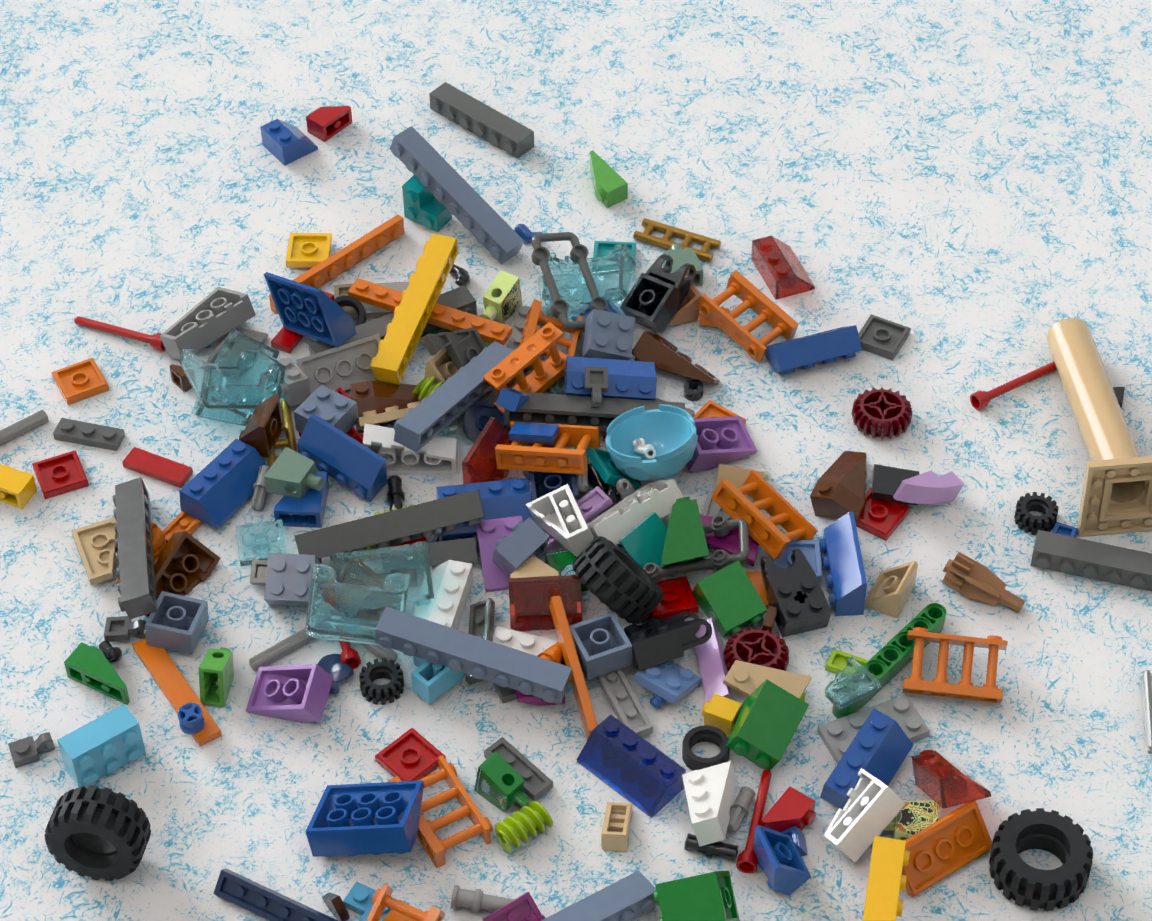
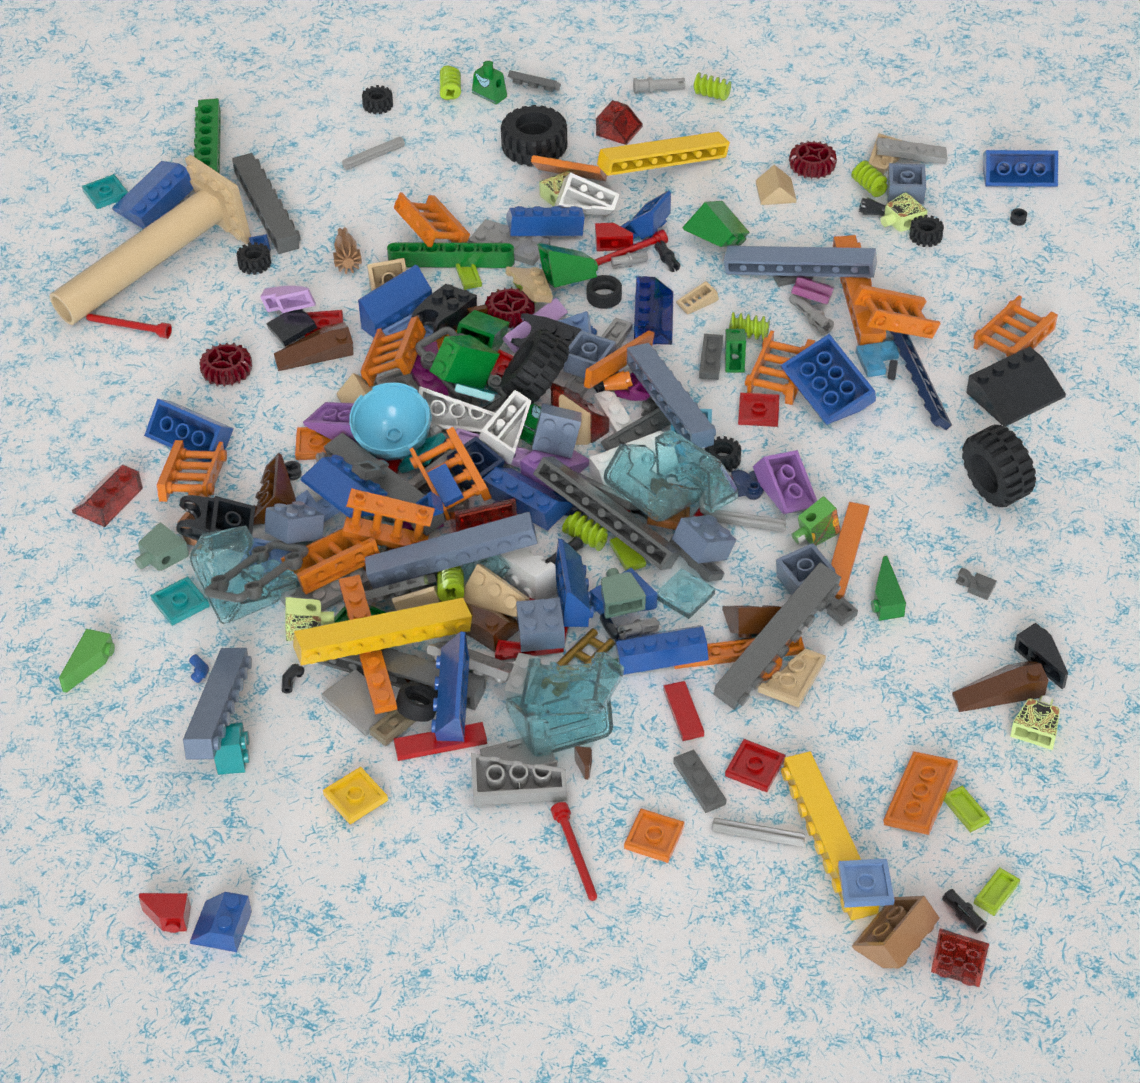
camera: 130 degrees left, 0 degrees up
(102, 746) = (937, 532): medium azure brick -> none
(112, 654) = (863, 598): black arm -> none
(190, 718) = (863, 512): blue wheel -> none
(264, 426) = (587, 641): reddish brown slope -> none
(350, 255) = (352, 759): orange plate -> none
(482, 120) = (68, 798): dark grey brick -> none
(644, 449) = (392, 434): white arm -> none
(671, 231) = (132, 582): pearl gold bar -> none
(709, 800) = (646, 256): white wedge -> none
(721, 713) = (571, 297): yellow brick -> none
(851, 685) = (498, 242): clear light blue wing -> none
(883, 337) = (135, 409): dark grey tile -> none
(945, 780) = (524, 180): clear red slope -> none

